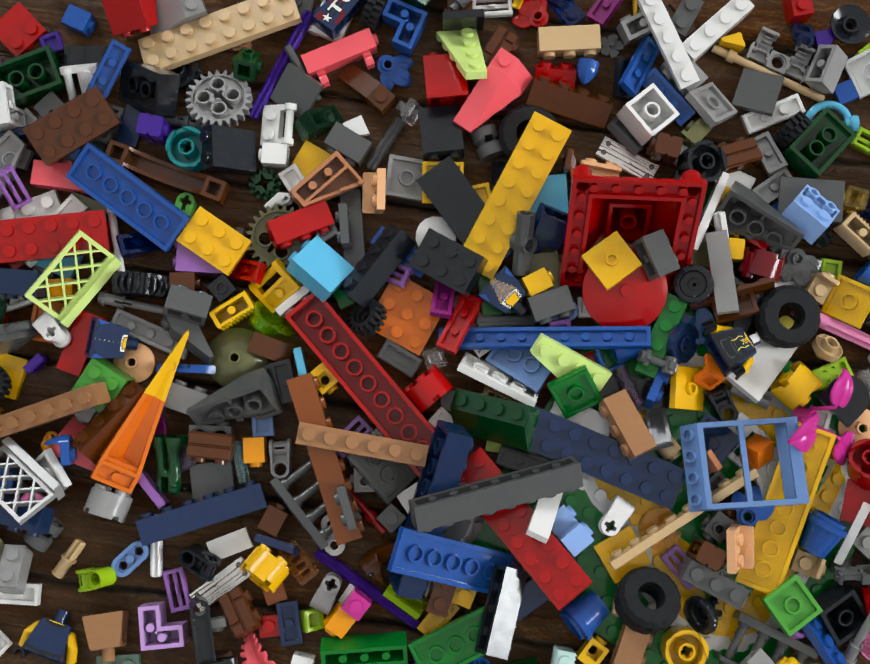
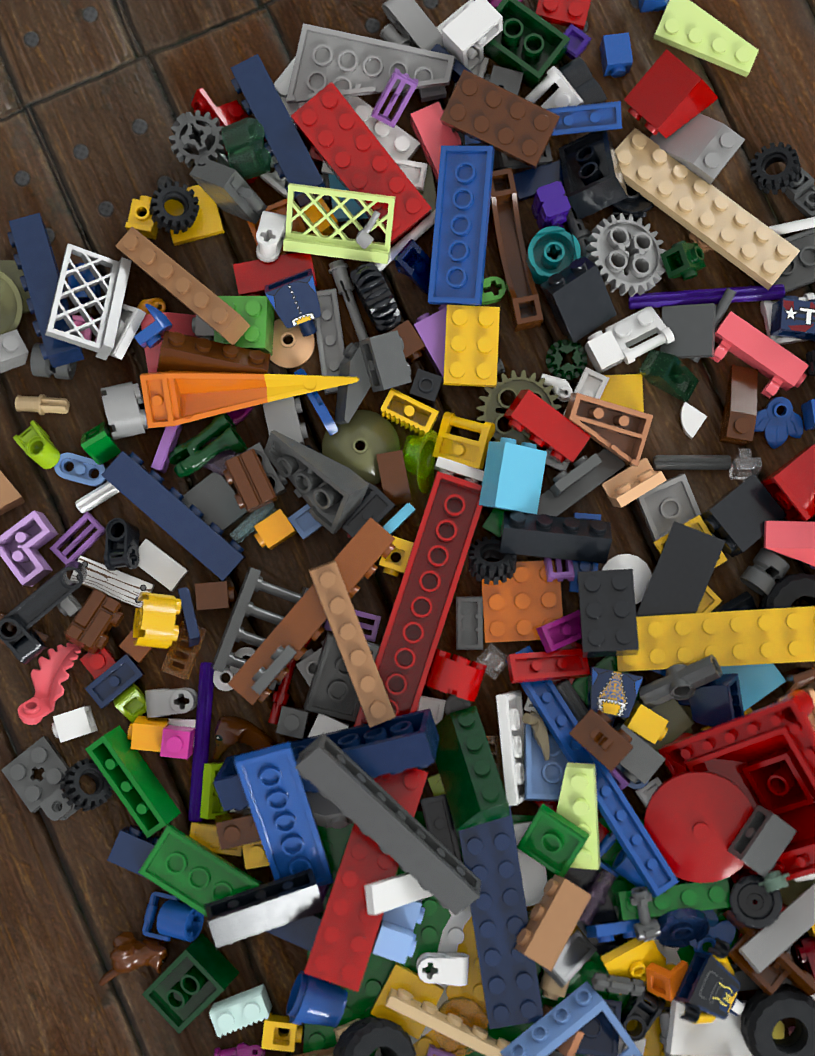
camera: 55 degrees right, 0 degrees up
(36, 363) = (225, 241): dark purple tile -> none
(94, 268) = (363, 237): none -> light grey hand
(121, 534) = (99, 443): none -> green slope
(249, 271) = (462, 403): red plate -> none
(280, 456) = (285, 561): light grey piece -> none
(348, 144) = (667, 424): dark grey brick -> none
(499, 356) = (539, 731): none -> dark tan bar
(528, 318) = (602, 740): none -> reddish brown brick
(611, 260) = (724, 794): yellow plate -> none
(687, 263) = (774, 881): none -> sand green plate
(693, 407) = (617, 984): none -> dark grey axle

